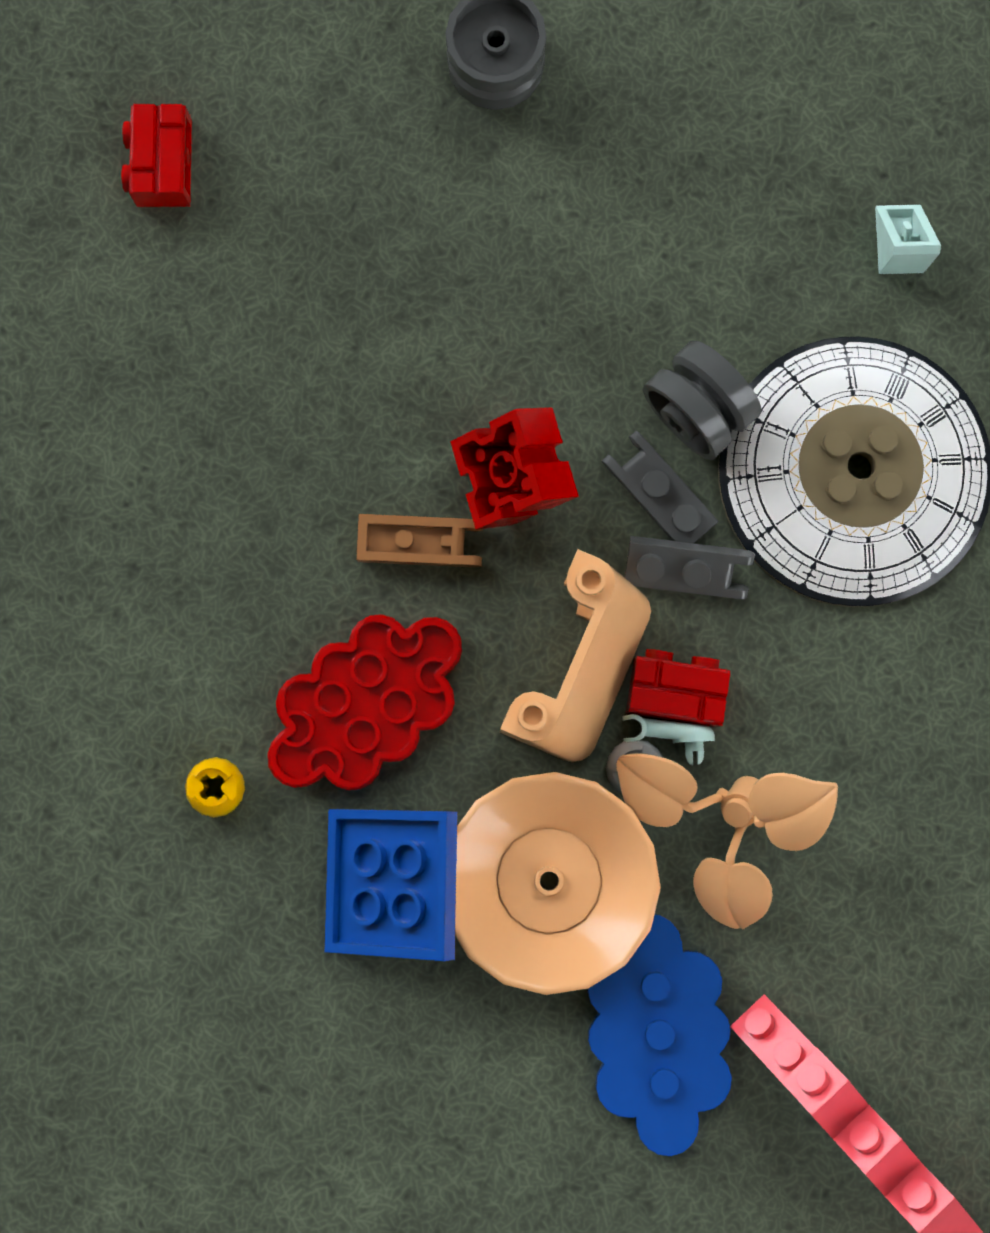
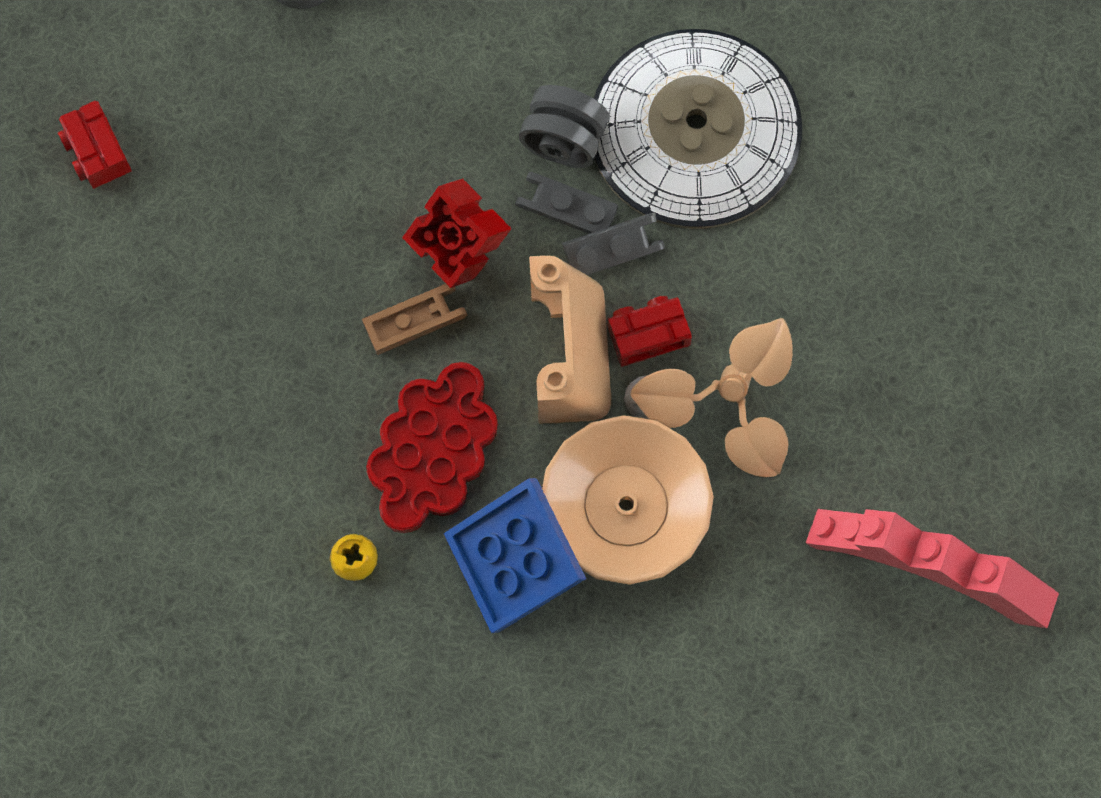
camera: 25 degrees left, 10 degrees down
(661, 1040) = (761, 575): blue plate -> none
(690, 733) = (666, 359): light aqua piece -> none

